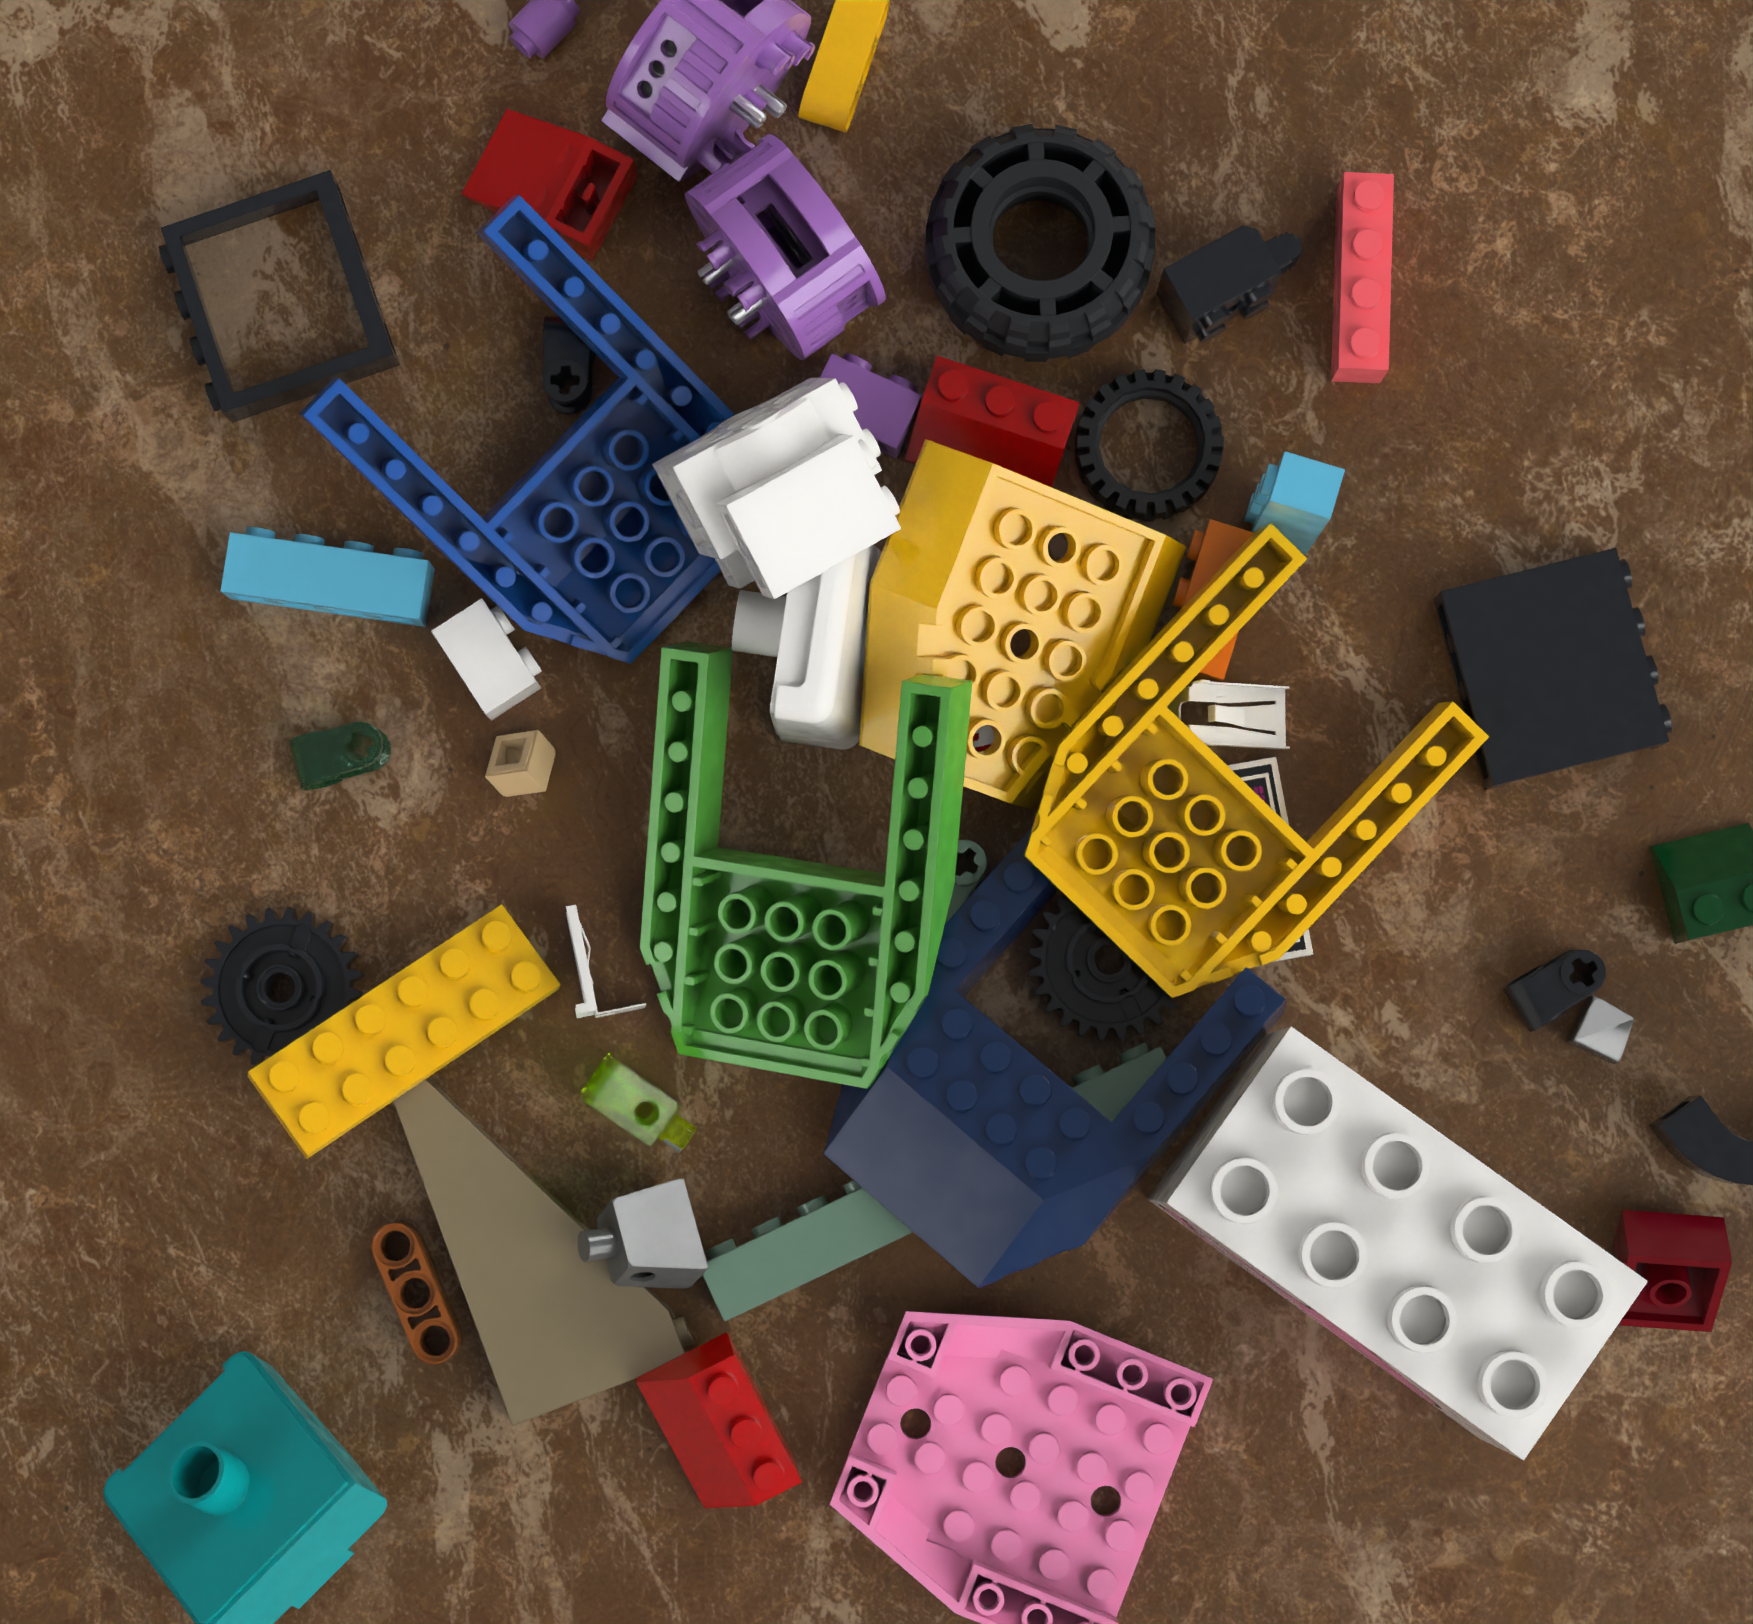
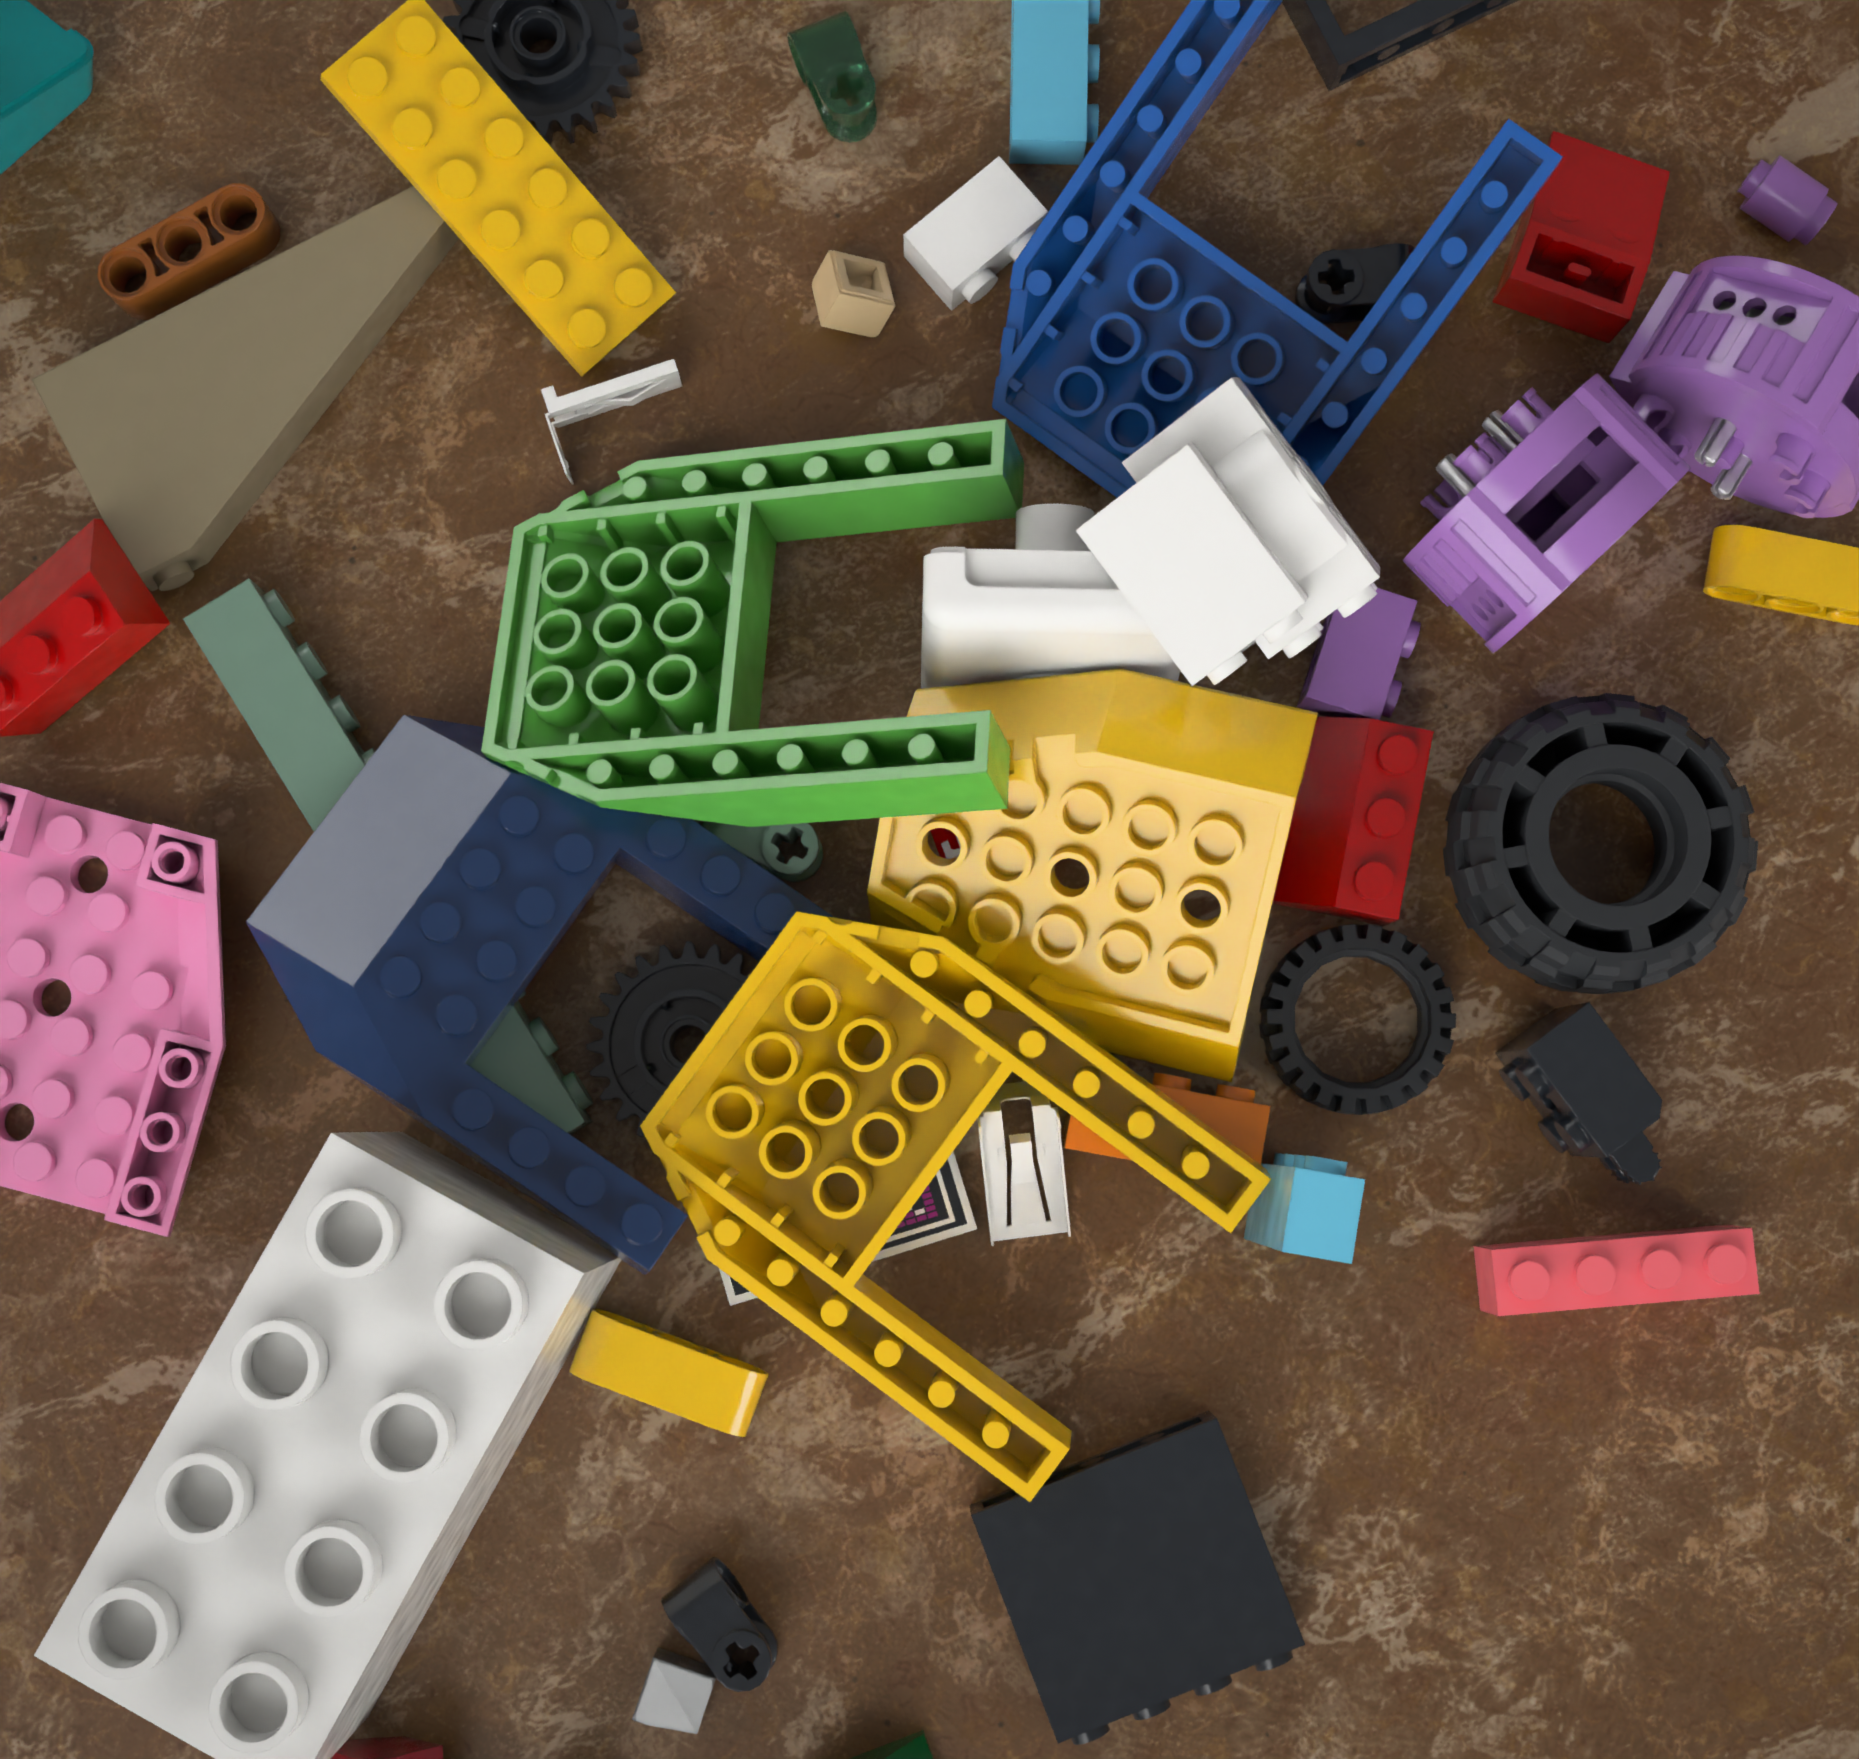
camera: 75 degrees right, 0 degrees up
(616, 1093) = (448, 456): clear neon green torso -> none
(648, 1239) = (274, 510): torso -> none
(1363, 999) = (668, 1372): none -> yellow beam

